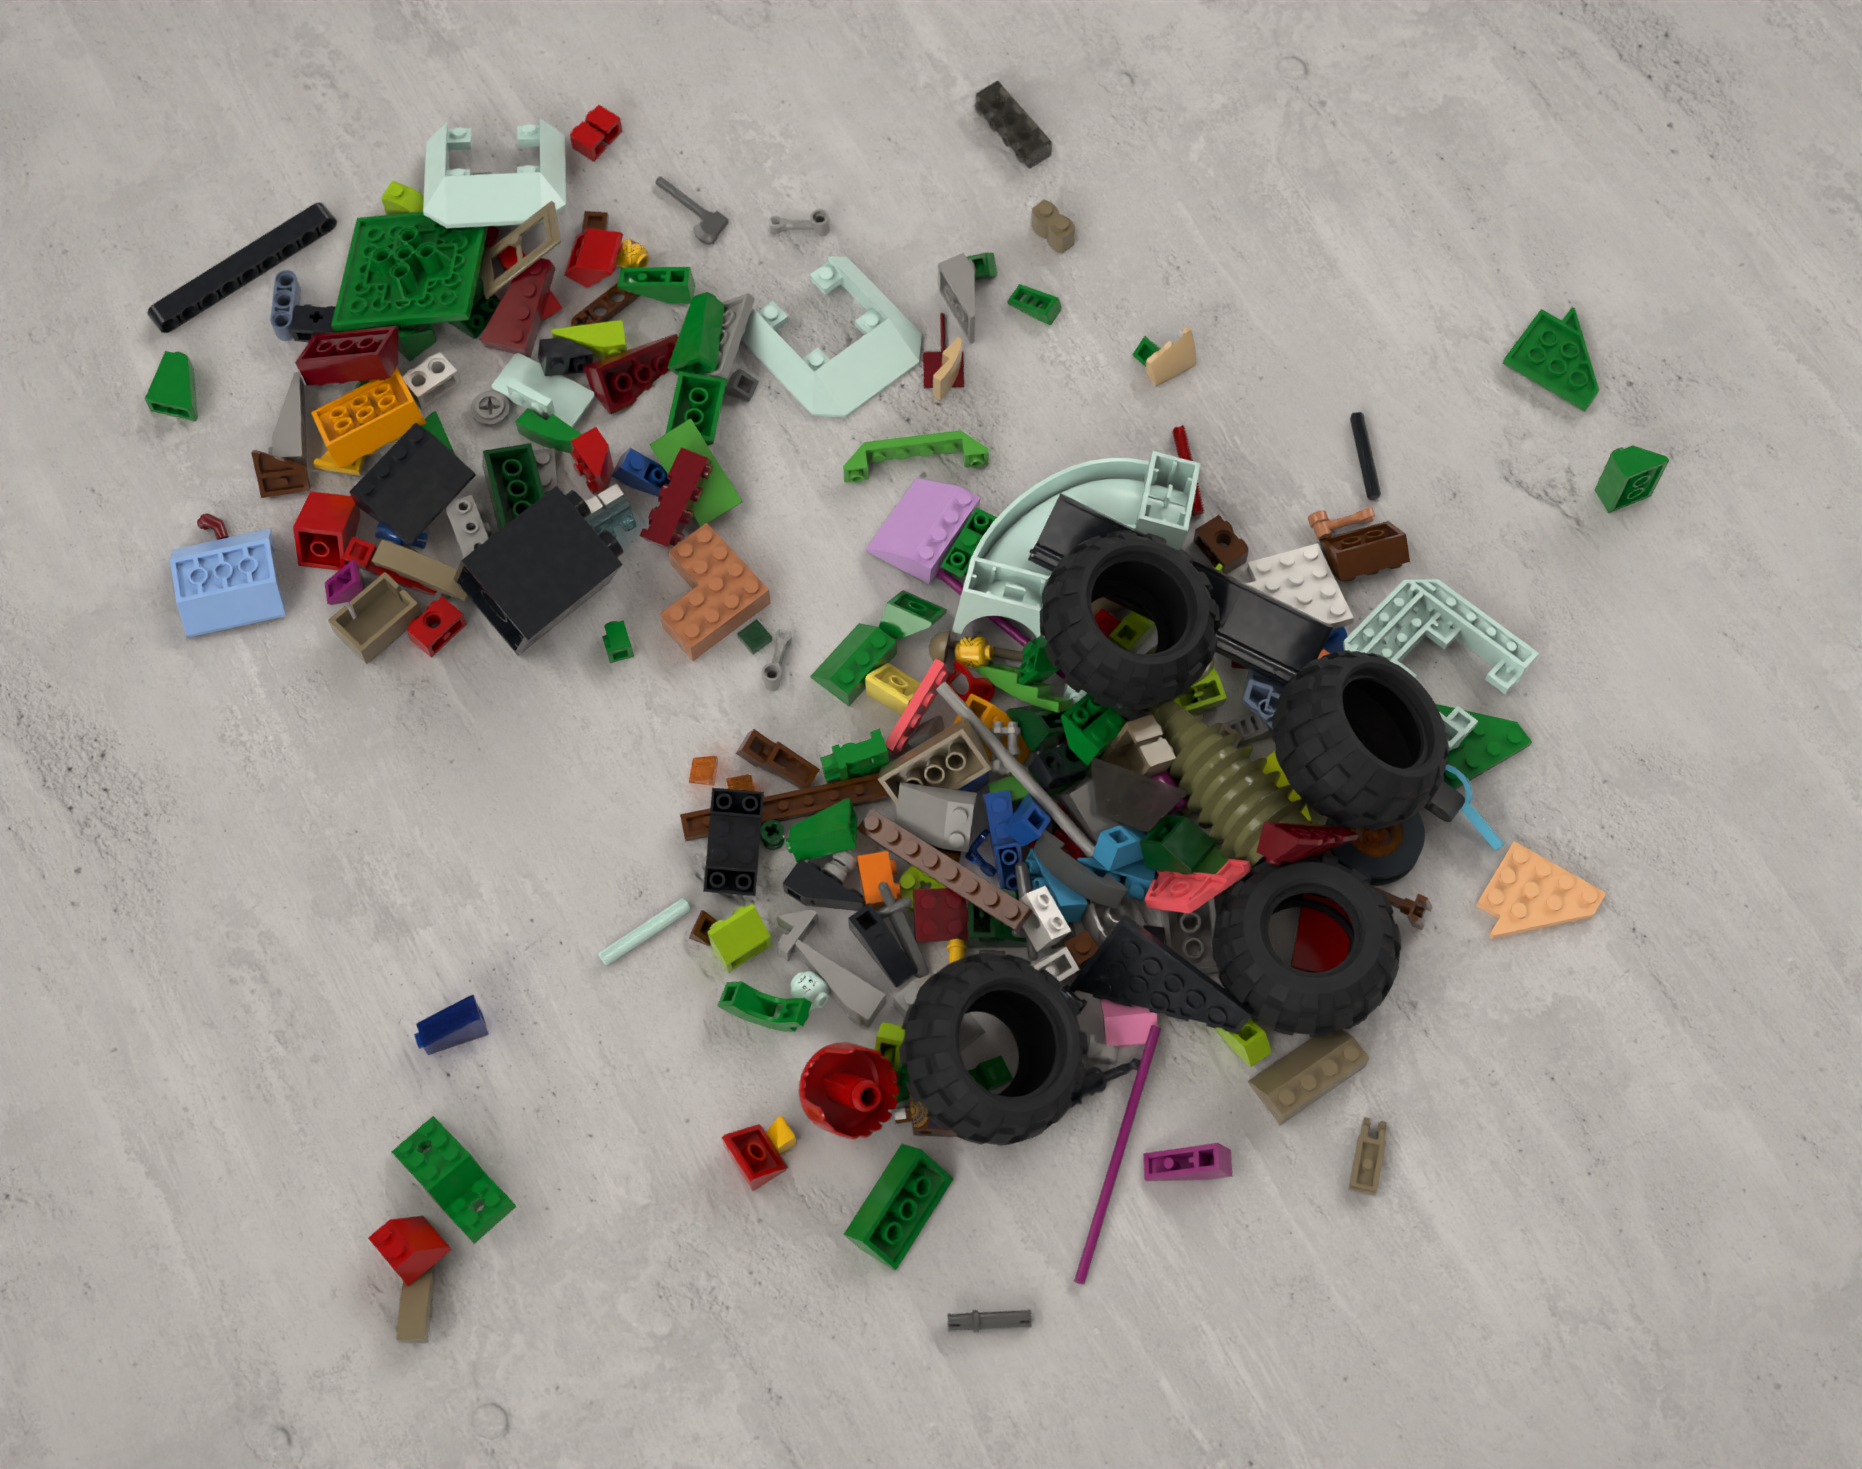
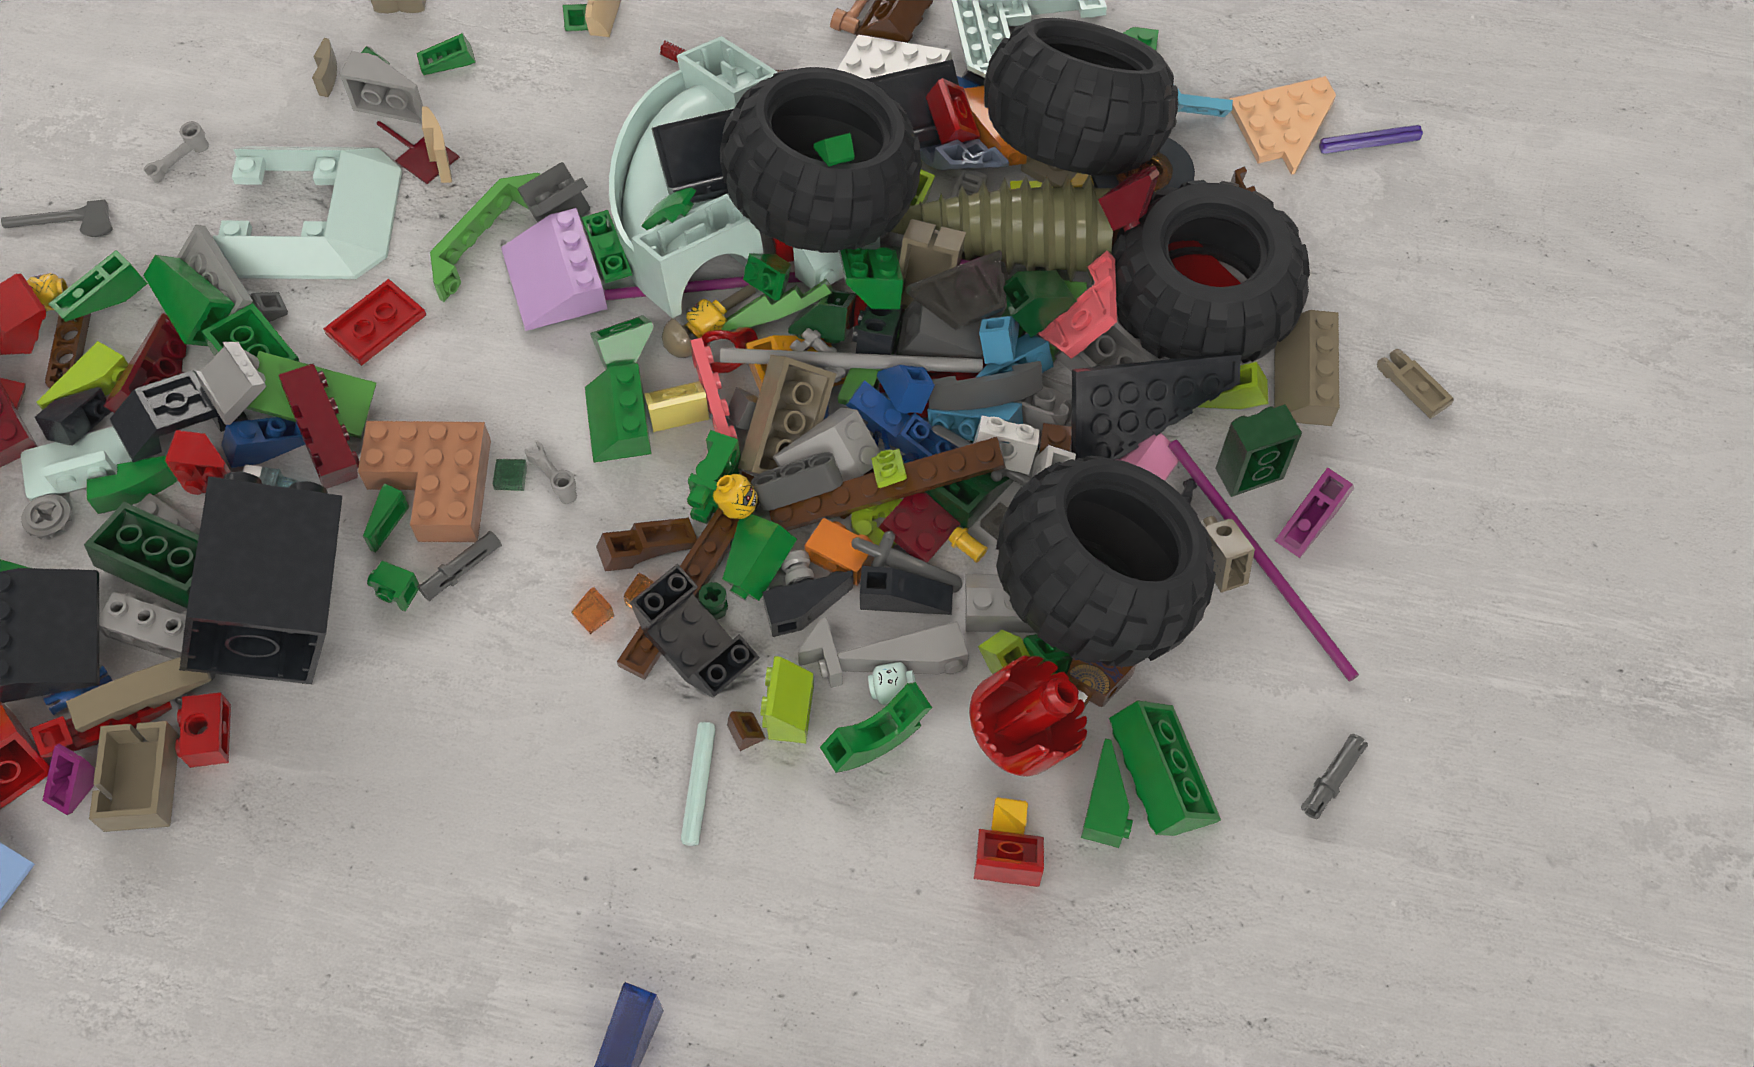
camera: 50 degrees left, 5 degrees down
(616, 408) = (163, 410): none -> black slope
(656, 424) = (232, 380): none -> light grey slope
(657, 593) = (385, 515): none -> green slope
(665, 666) = (449, 573): none -> dark grey pin
(790, 457) = (374, 322): none -> red tile
(838, 1190) = (1108, 804): none -> green slope
(849, 784) = (735, 496): none -> yellow head
(896, 812) = (797, 481): none -> dark grey beam
(953, 860) = (888, 467): none -> lime bracket
(956, 239) = (326, 73): none -> dark tan slope
(981, 474) = (554, 193): none -> dark grey bracket
(1018, 558) = (670, 208): none -> green slope
(1096, 1125) = (1231, 553): none -> dark tan torso
(1112, 627) = (836, 149): none -> green slope
(1190, 1085) = (1258, 449): none -> dark green brick
(1288, 662) = (952, 112): none -> red slope
(1576, 969) = (1370, 139): none -> axle

